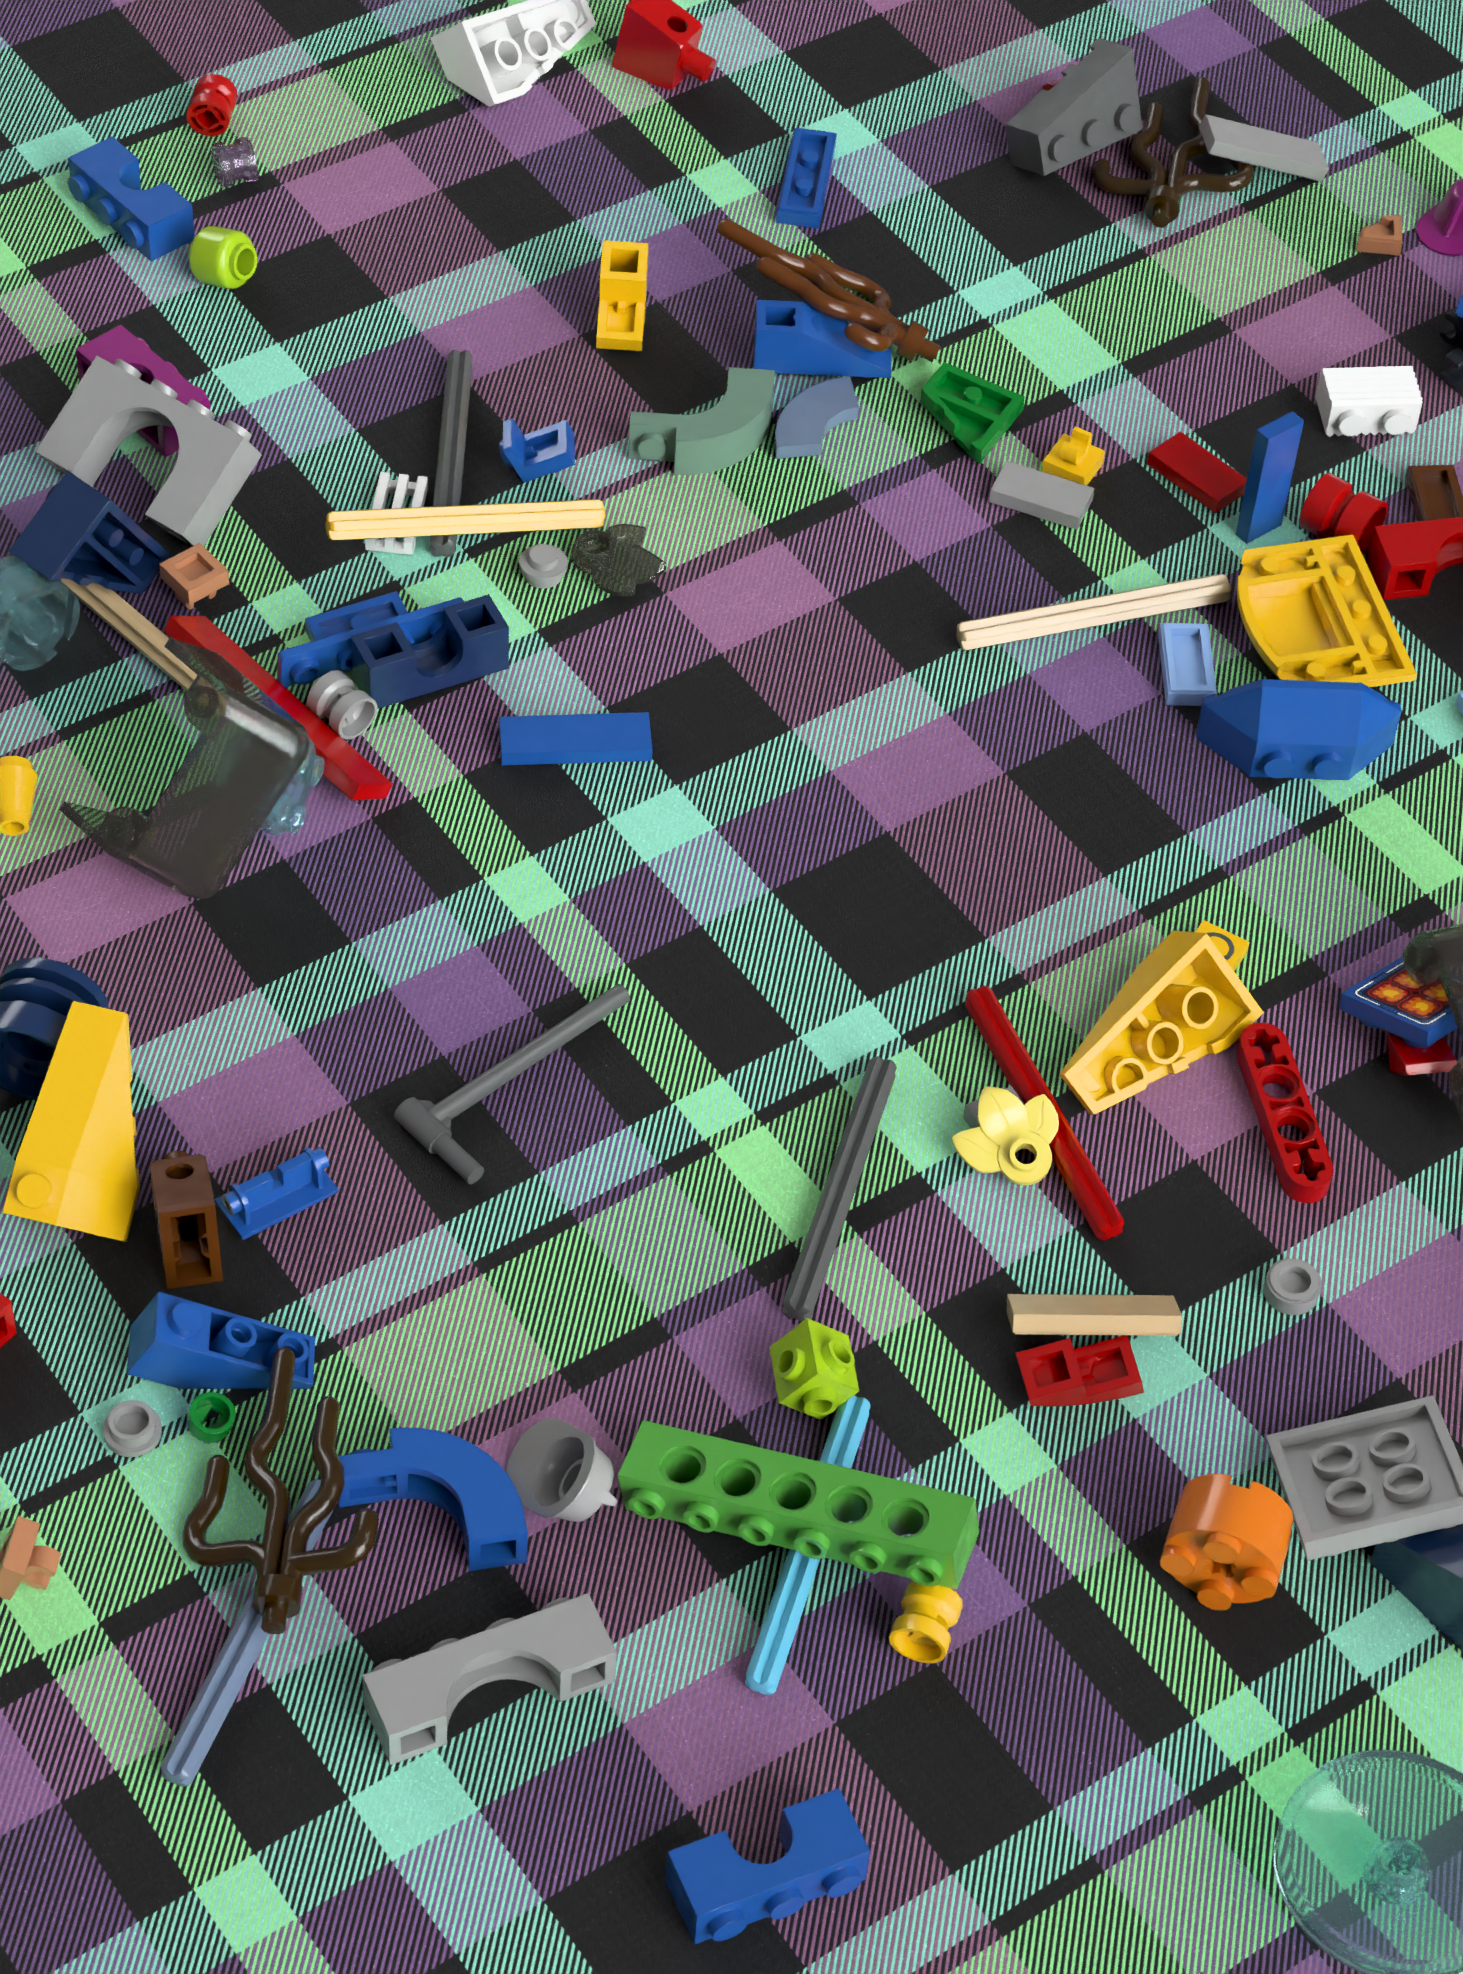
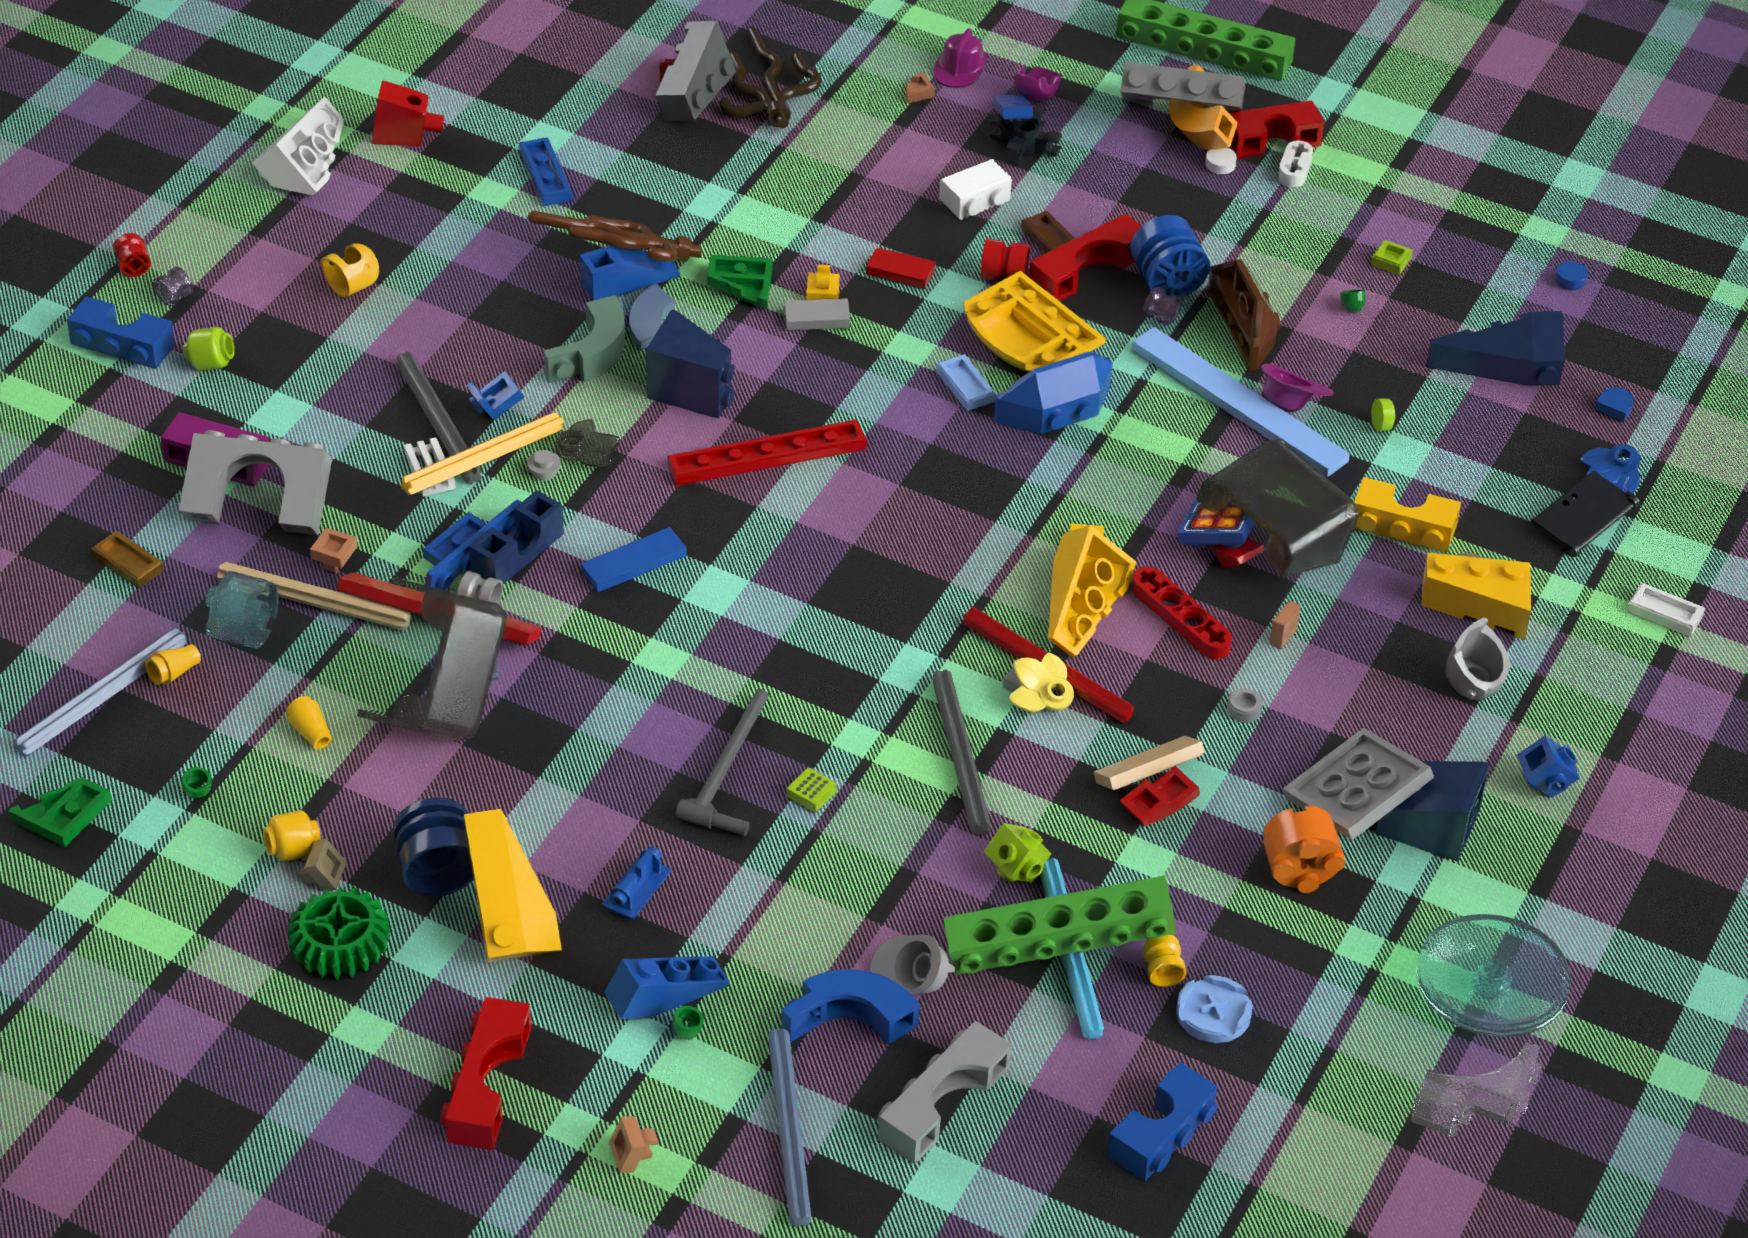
camera: 25 degrees left, 5 degrees down
(88, 540) = (265, 545): dark blue wedge -> none
(132, 1429) = (643, 1048): light grey plate -> none
(185, 1195) = (598, 918): reddish brown torso -> none
(282, 1555) = (788, 1079): dark brown plant -> none
(466, 224) = (352, 273): none -> yellow helmet
(600, 1156) = (811, 789): none -> lime tile
(622, 295) = (485, 282): yellow brick -> none
(804, 502) = (689, 368): none -> dark blue slope
(851, 659) = (766, 452): none -> red tile
(958, 1726) = (1214, 1009): none -> light blue tile
(1093, 612) = (892, 372): axle -> none
(1263, 148) = (819, 57): light grey tile -> none
(1269, 477) = (956, 253): blue tile -> none
(1422, 1191) = (1285, 624): none -> nougat tile

